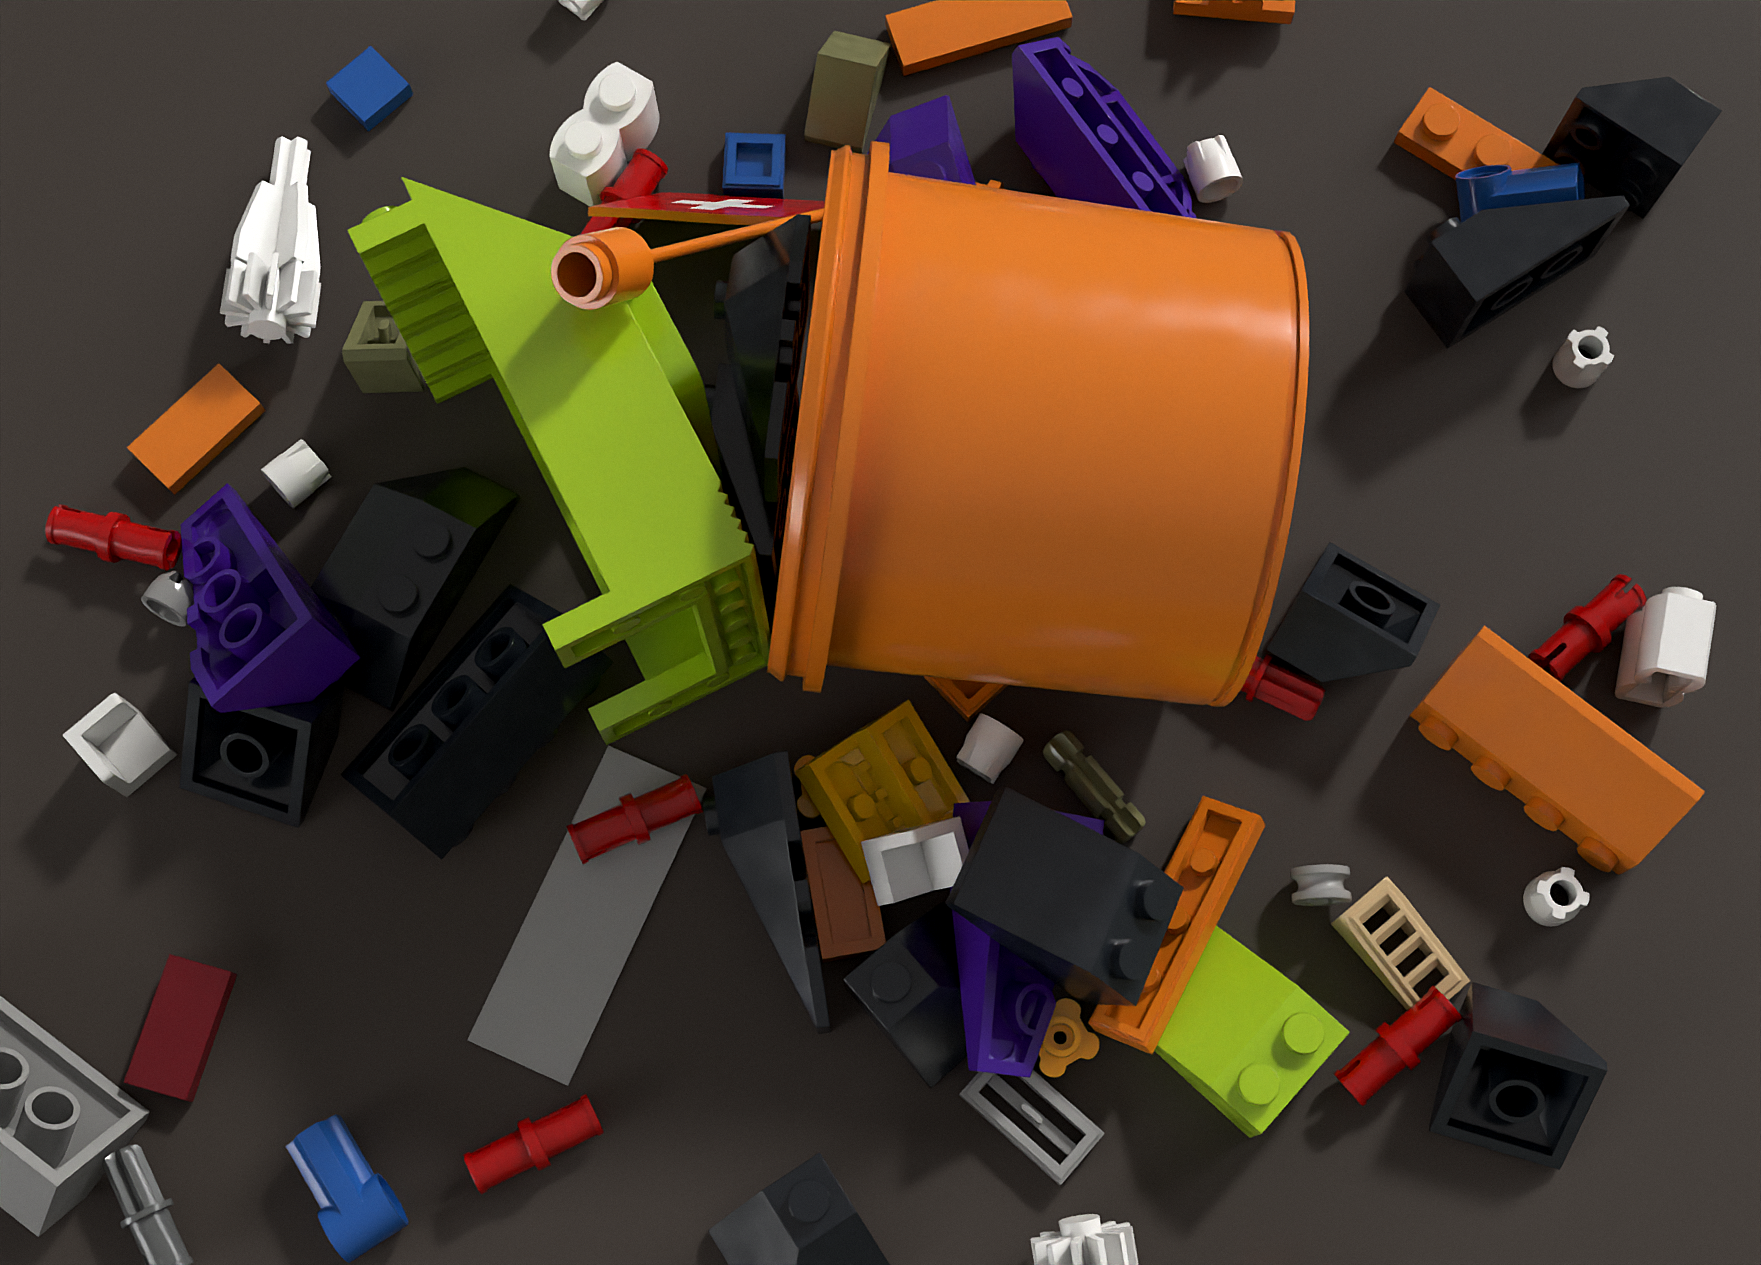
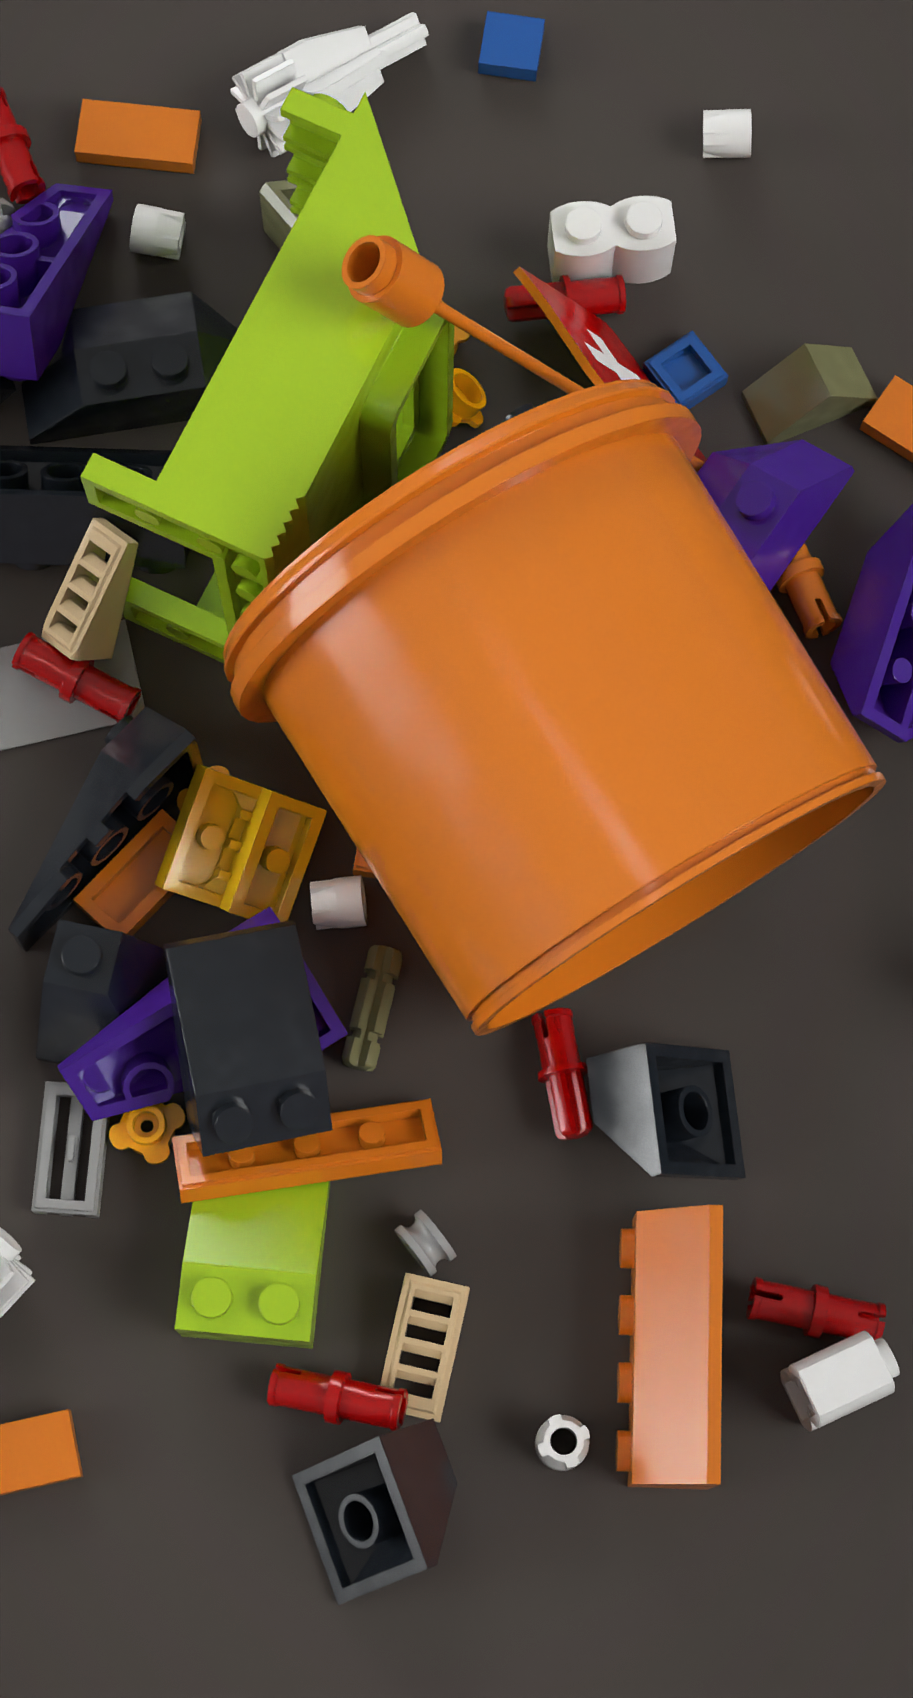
camera: 50 degrees right, 0 degrees up
(585, 787) = (93, 595): none -> tan slope
(915, 859) = (194, 902): white panel -> none

